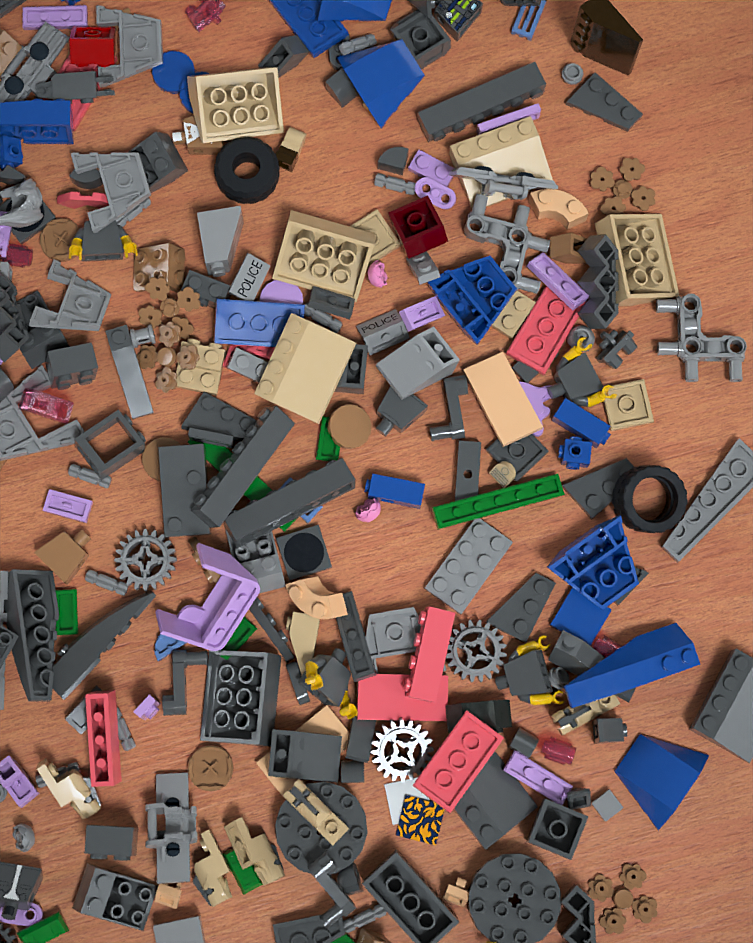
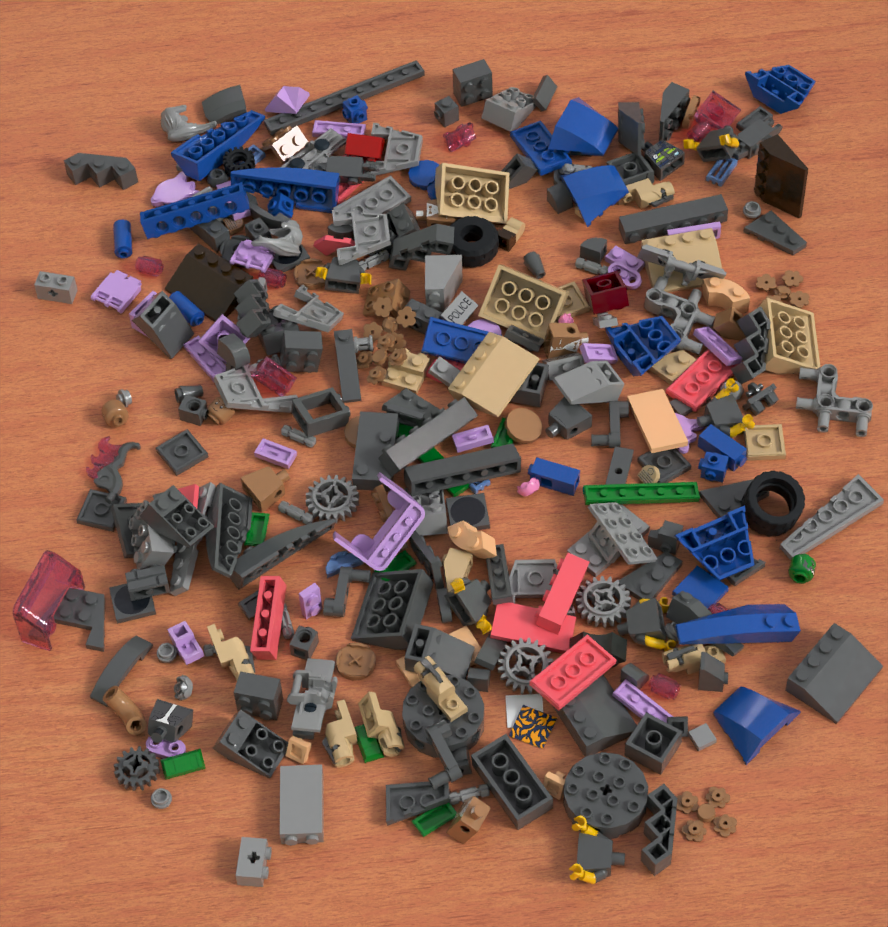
camera: 15 degrees right, 25 degrees down
(118, 124) = (376, 199): none -> light grey plate
(153, 766) = (306, 649): none -> dark grey brick
(189, 192) = (418, 244): none -> dark grey brick
(294, 452) = (472, 438): none -> lavender plate
(326, 191) = (534, 264): none -> dark grey cone
(378, 300) = (563, 339): none -> medium nougat torso
(449, 69) = (647, 194): none -> tan plate
(482, 568) = (617, 535): none -> light grey bracket
(536, 556) = (664, 538): none -> dark grey brick
(690, 575) = (802, 568): none -> green head

